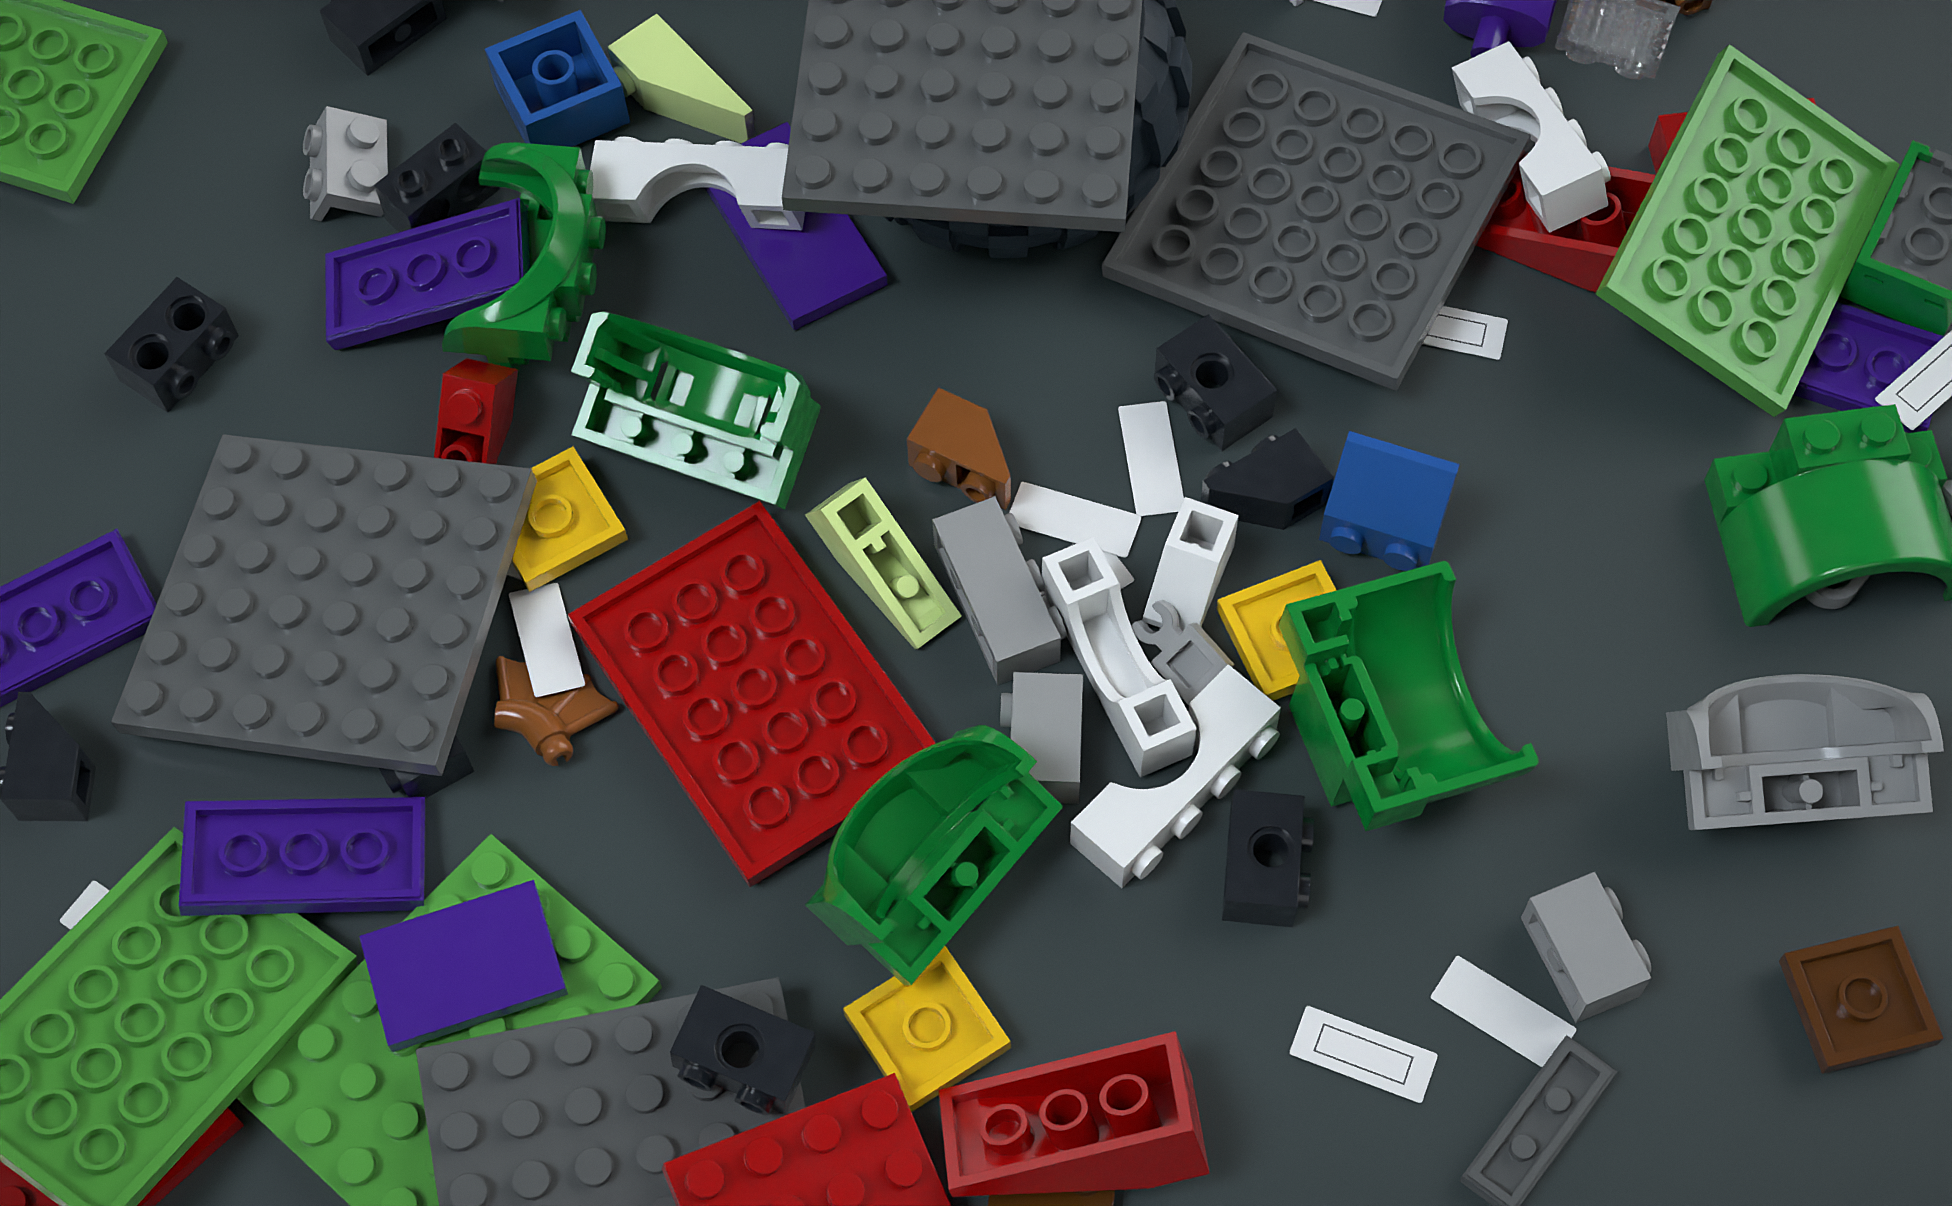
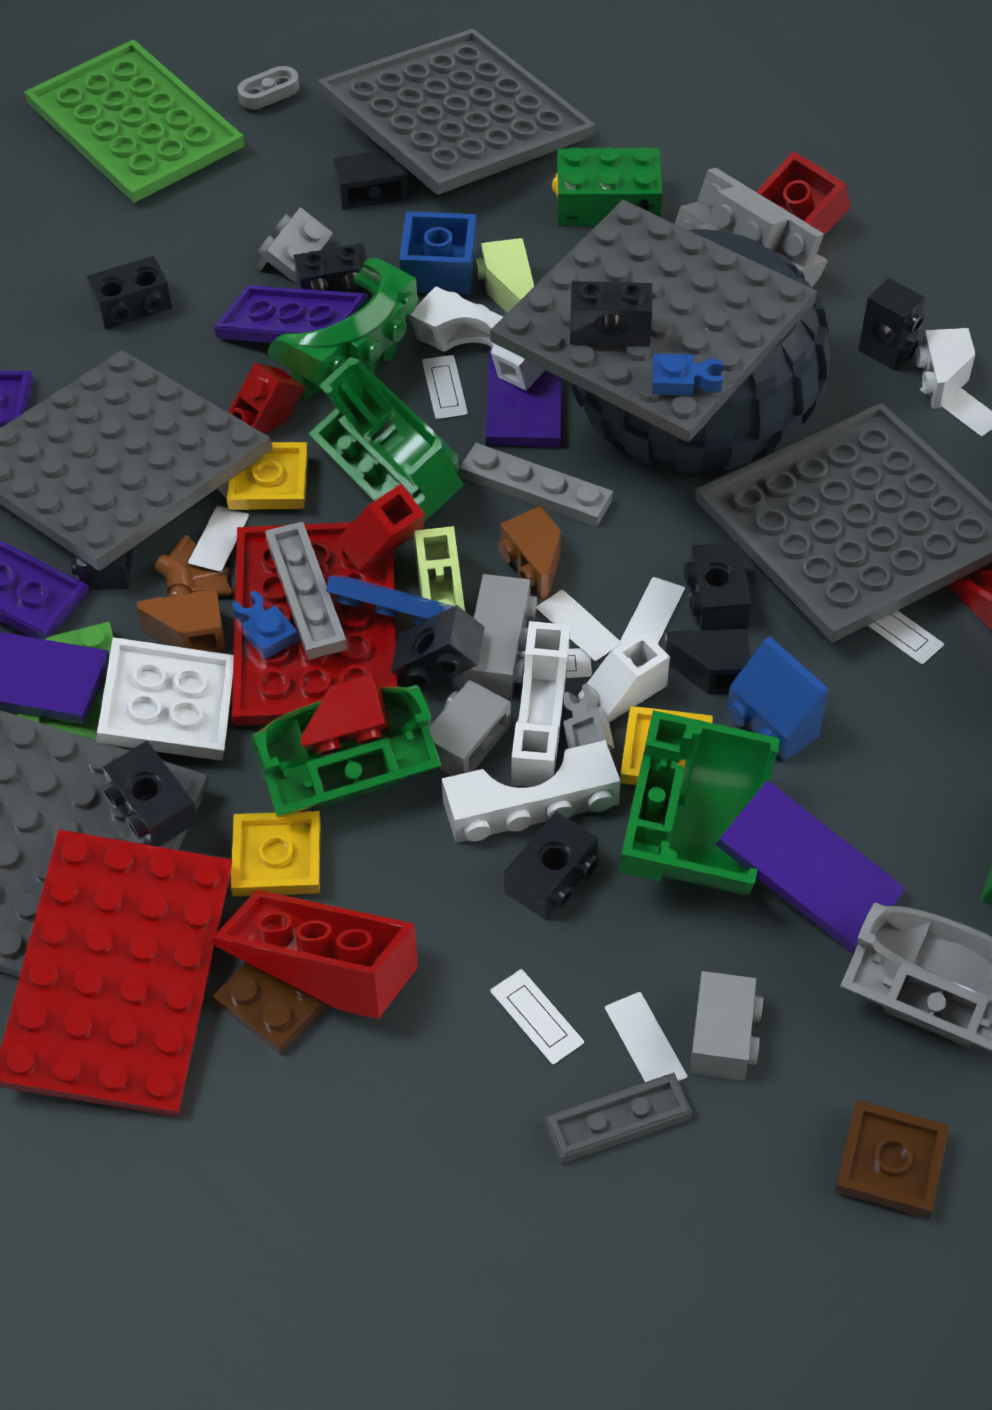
camera: 30 degrees right, 10 degrees down
(595, 783) = (184, 621): none -> dark orange slope
(650, 903) = (167, 698): none -> white plate
(684, 272) = (444, 387): none -> white sticker
(710, 739) = (265, 630): none -> blue plate
(727, 659) = (305, 590): none -> light grey plate
(773, 526) = (382, 528): none -> red slope
(844, 617) = (387, 600): none -> blue plate
(897, 353) = (536, 484): none -> light grey plate
(916, 807) = (347, 714): none -> red slope
(938, 106) = (611, 313): none -> black brick
(949, 652) = (438, 648): none -> black brick
(1072, 150) = (679, 374): none -> blue plate
(1555, 694) = (808, 864): none -> dark purple tile

